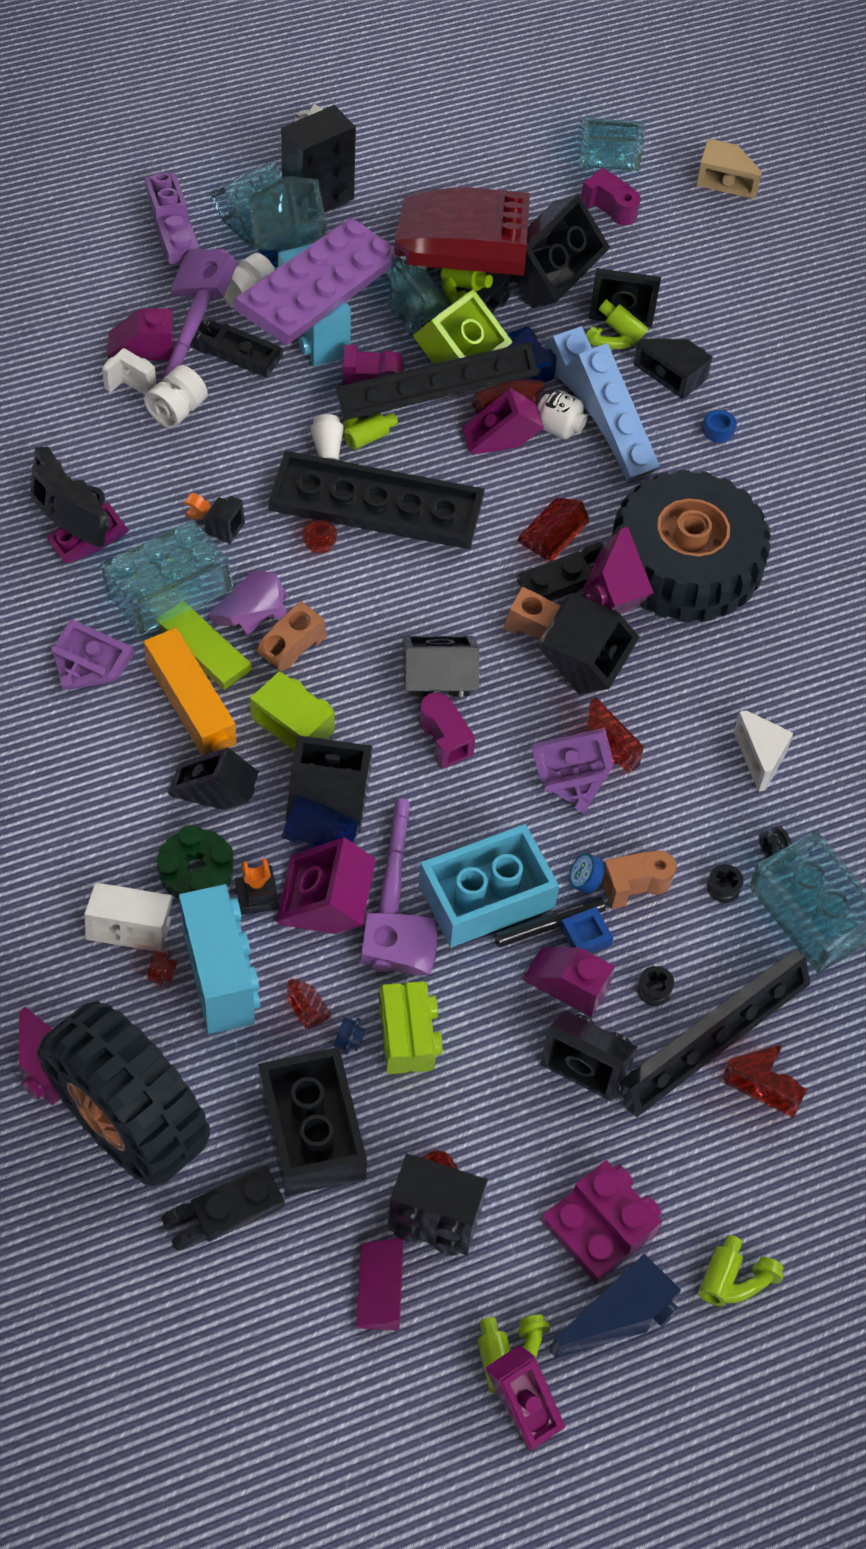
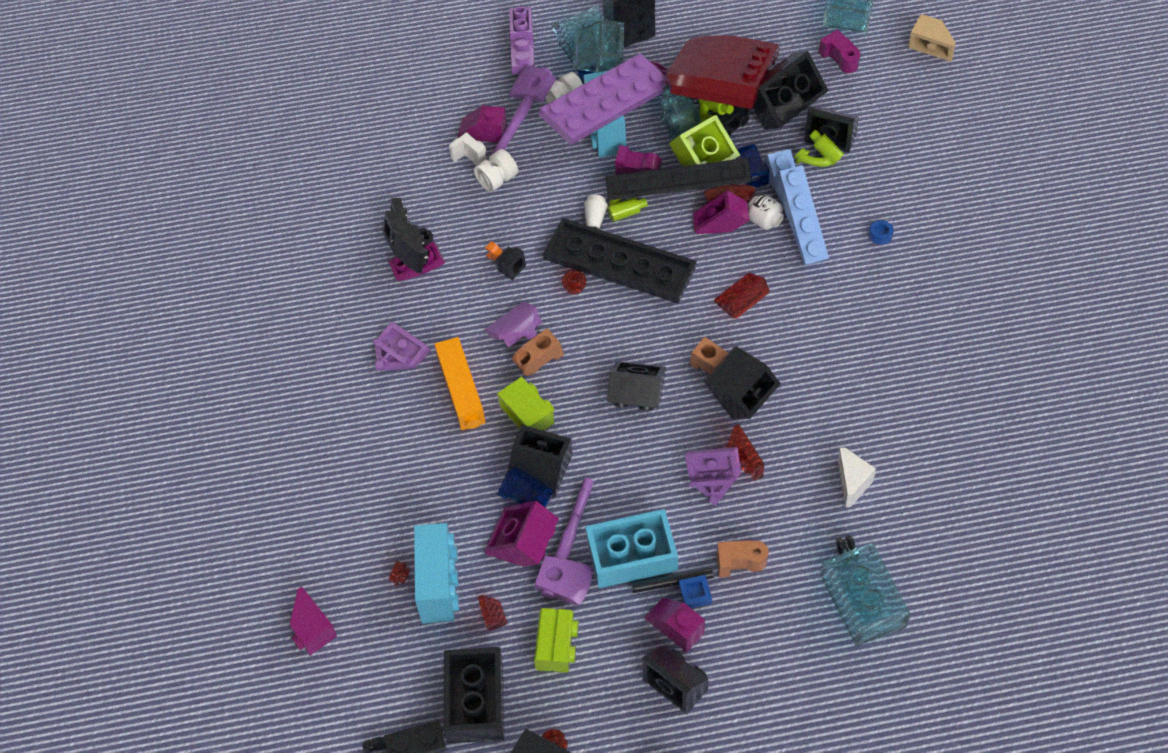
camera: 20 degrees right, 0 degrees up
(124, 1092) = (347, 656): black wheel -> none
(128, 917) = (384, 535): white hinge -> none
(166, 576) = (461, 299): clear light blue brick -> none
(189, 845) = (438, 490): dark green plate -> none
(210, 649) = (478, 350): lime tile -> none
(215, 780) = (463, 447): black slope -> none
(237, 347) = (546, 139): black hinge -> none
(257, 889) = (475, 528): black piece -> none
(349, 1035) = (514, 639): dark blue plate -> none
(448, 728) = (629, 427): magenta leg -> none
(561, 575) = (743, 329): black hinge -> none
(586, 873) = (705, 549): tile -> none
(618, 575) = (772, 341): magenta slope -> none
(660, 974) = (739, 629): black bush -> none
(673, 363) = (857, 182): black slope -> none
(697, 543) = (834, 320): black wheel -> none
(715, 1033) = (769, 677): black plate -> none
(728, 893) = (803, 563): black bush -> none
(754, 1077) = (790, 713): clear red slope -> none

